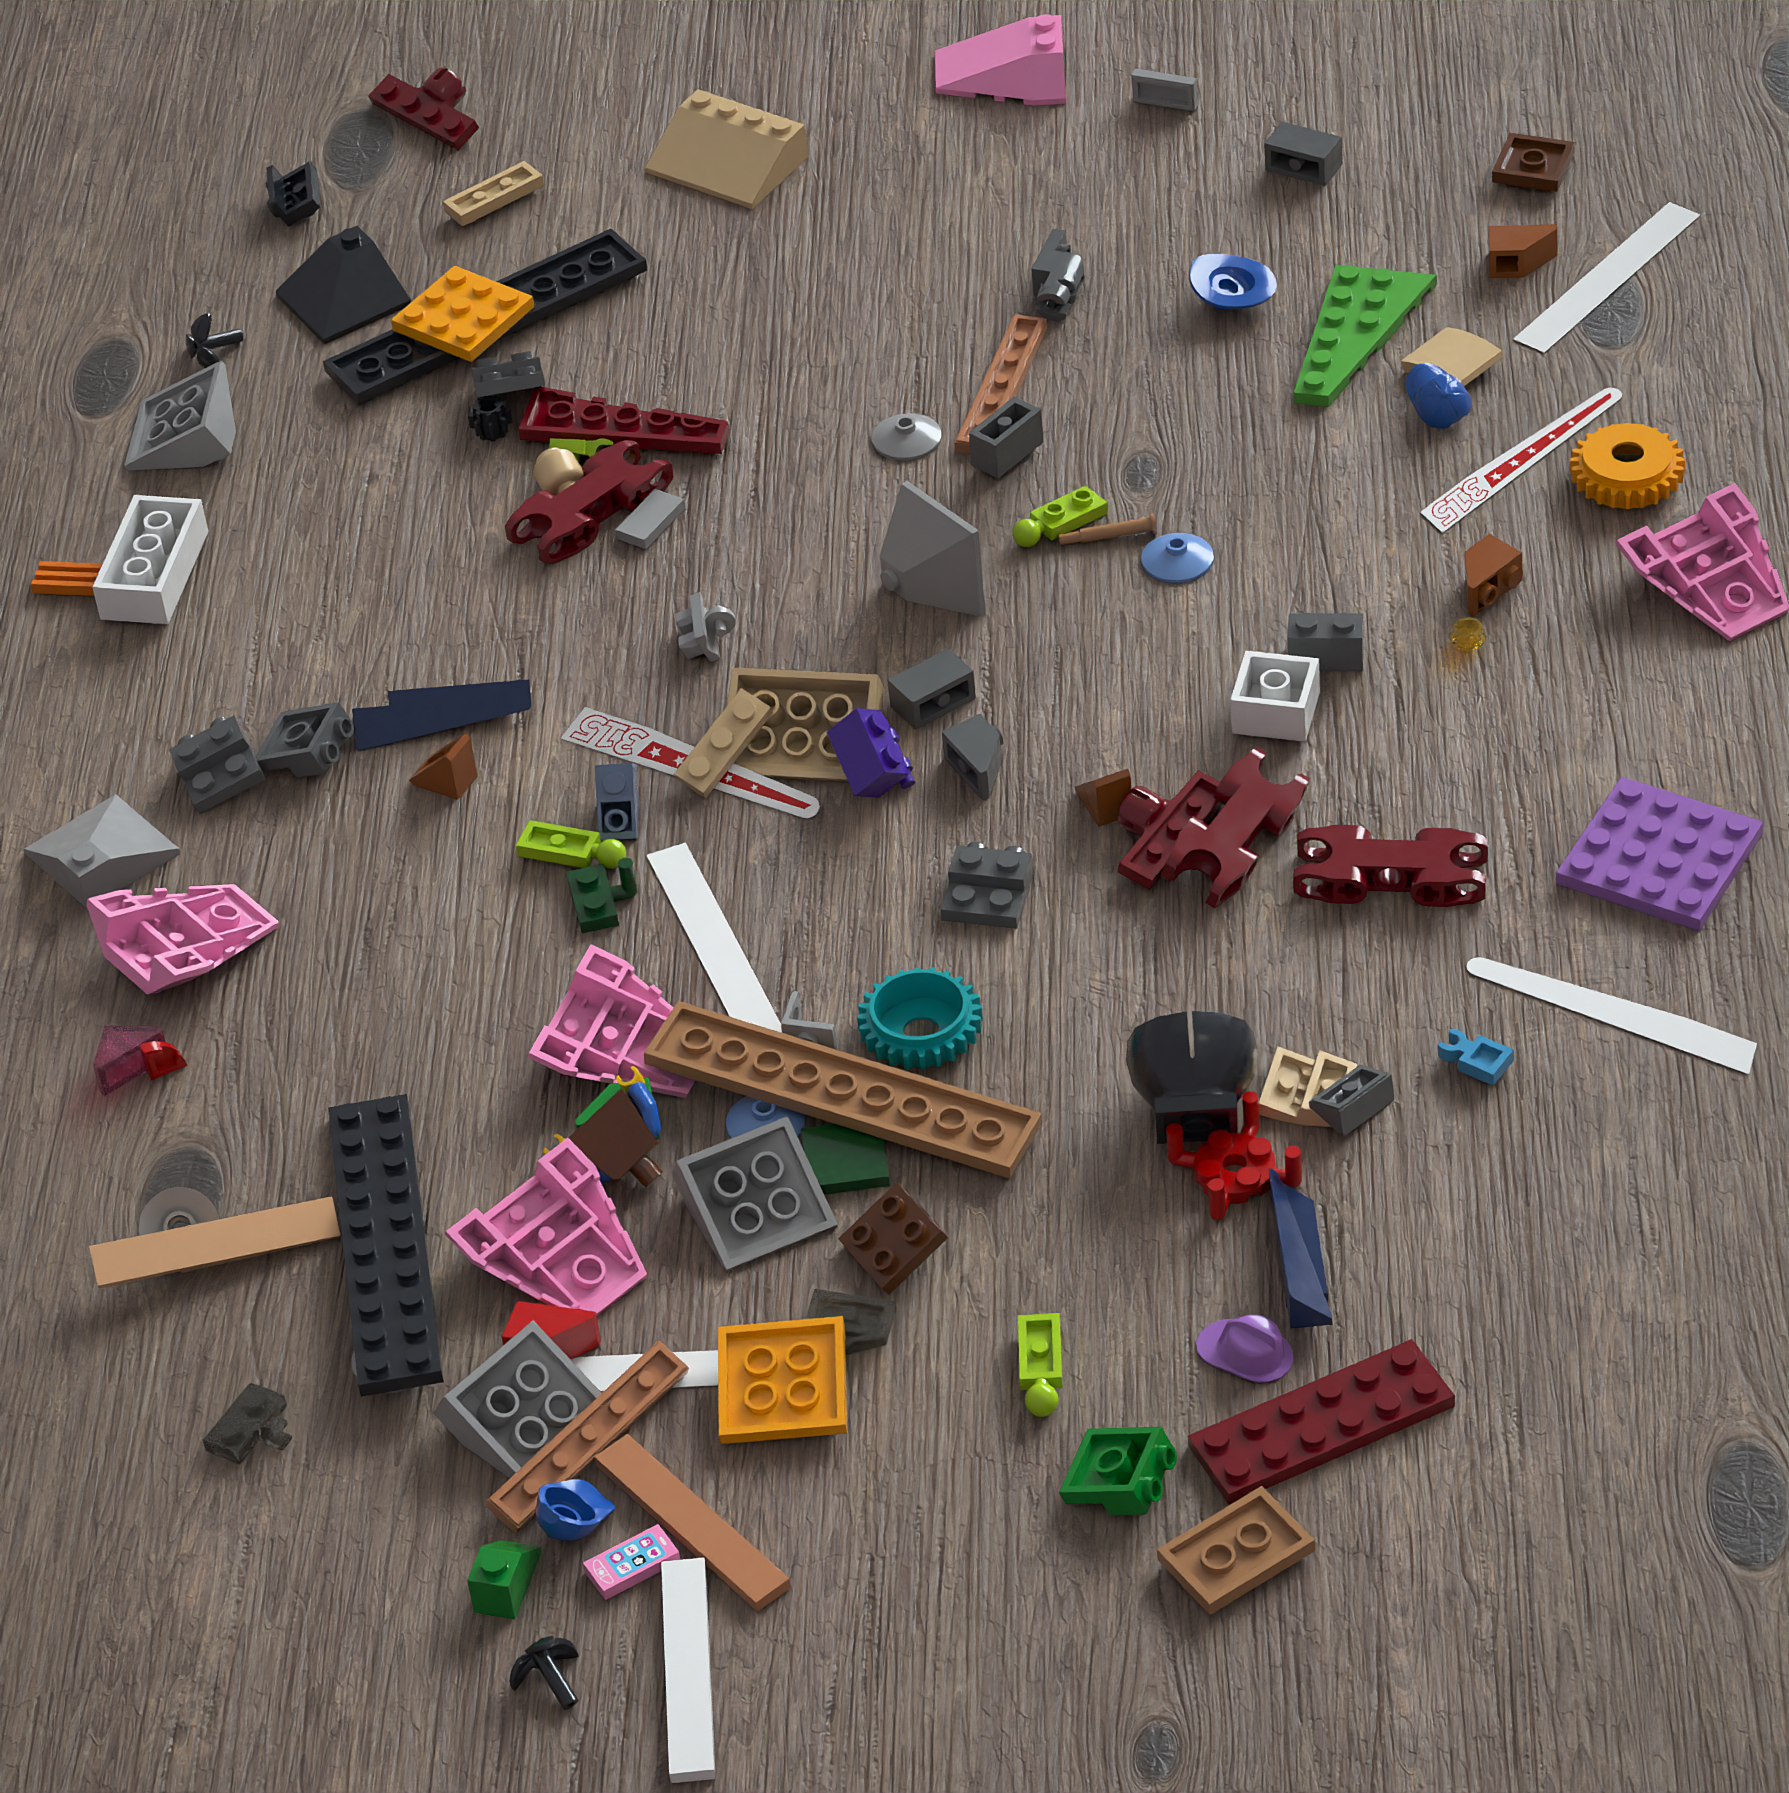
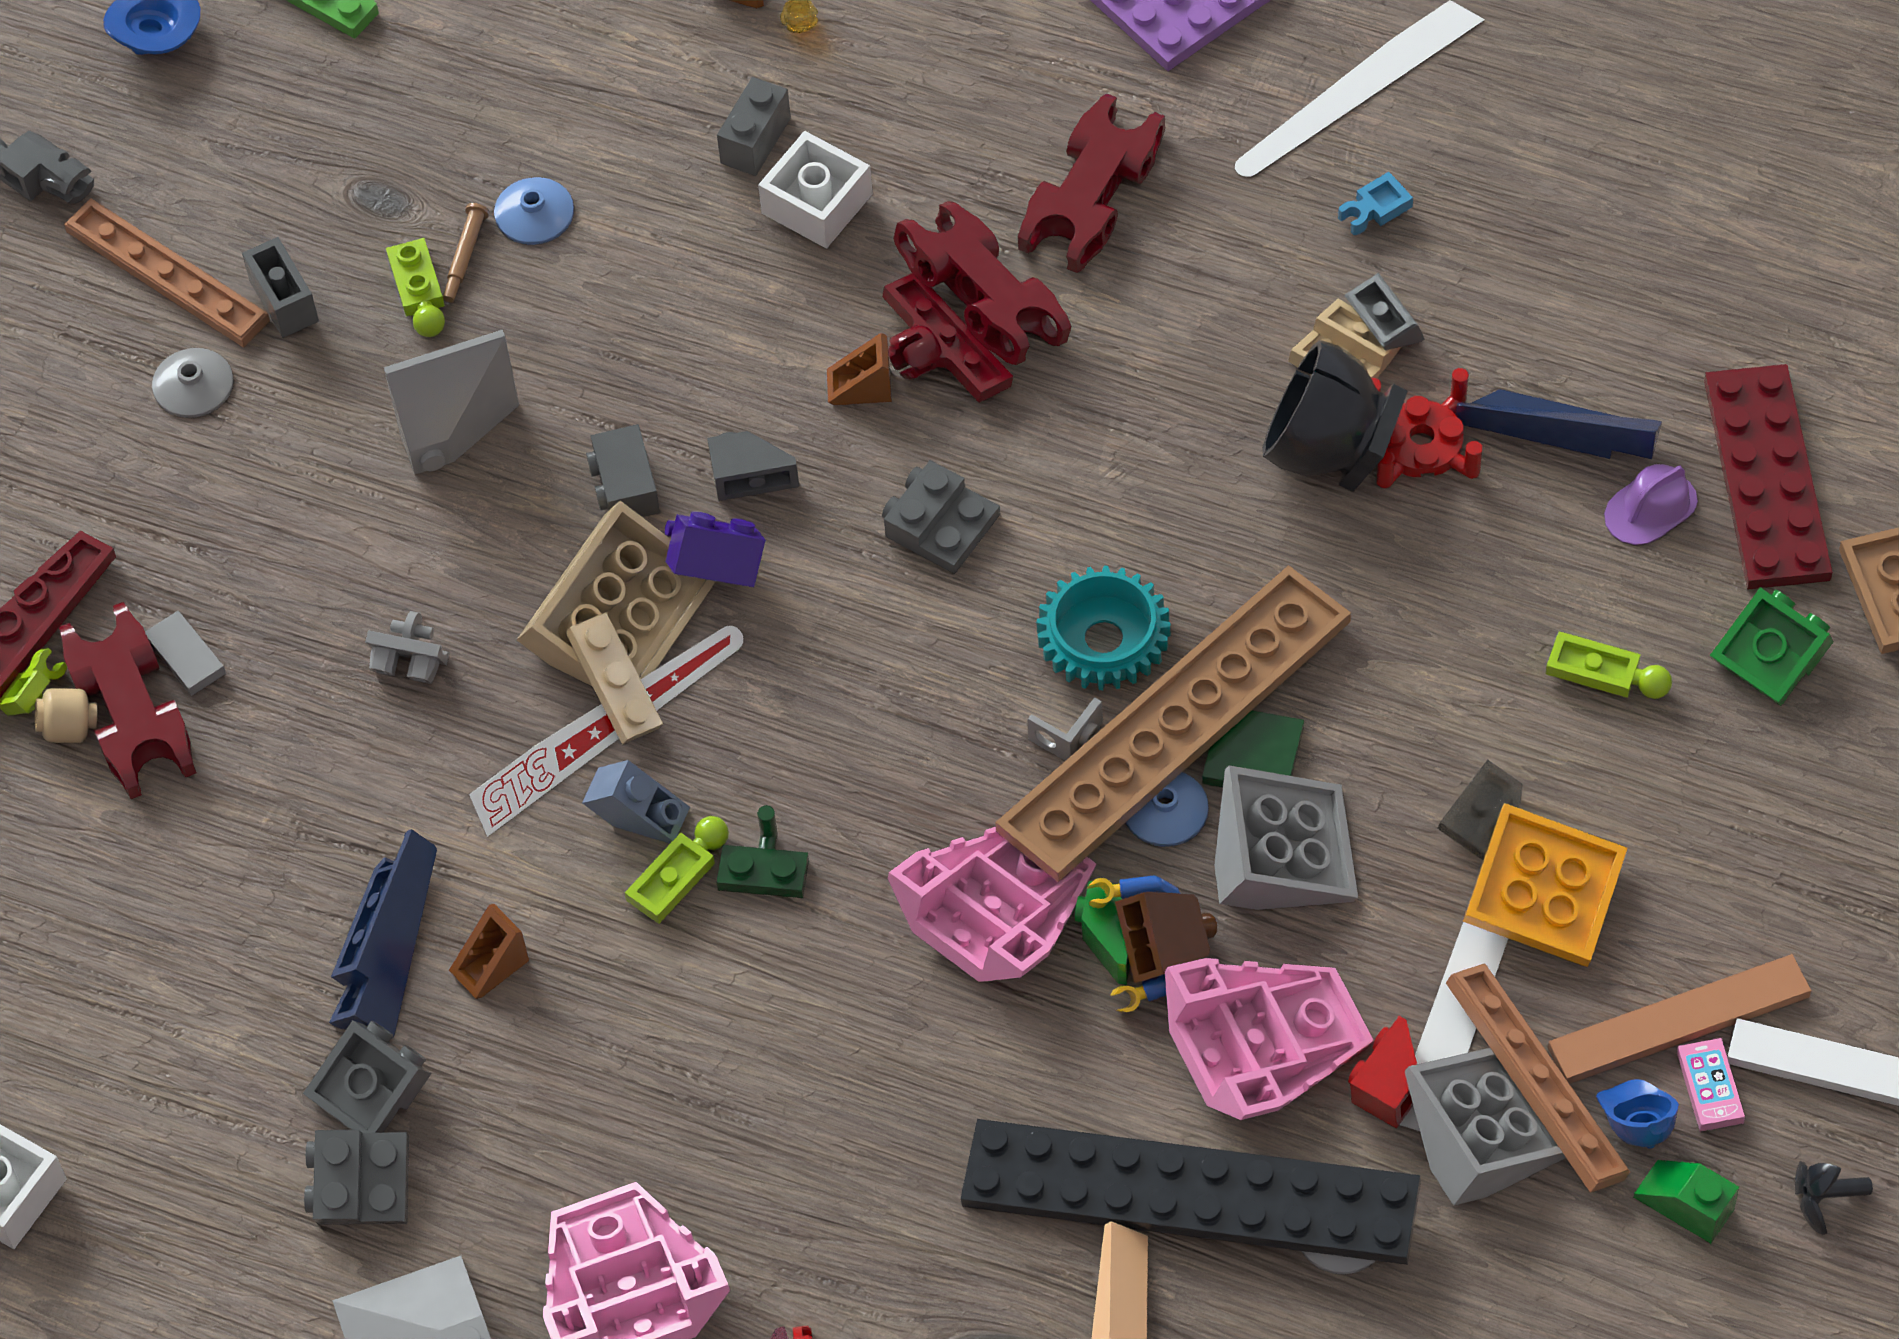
camera: 70 degrees left, 15 degrees up
(712, 937) = (881, 780): white sticker -> none
(893, 1238) = (1399, 737): reddish brown plate -> none

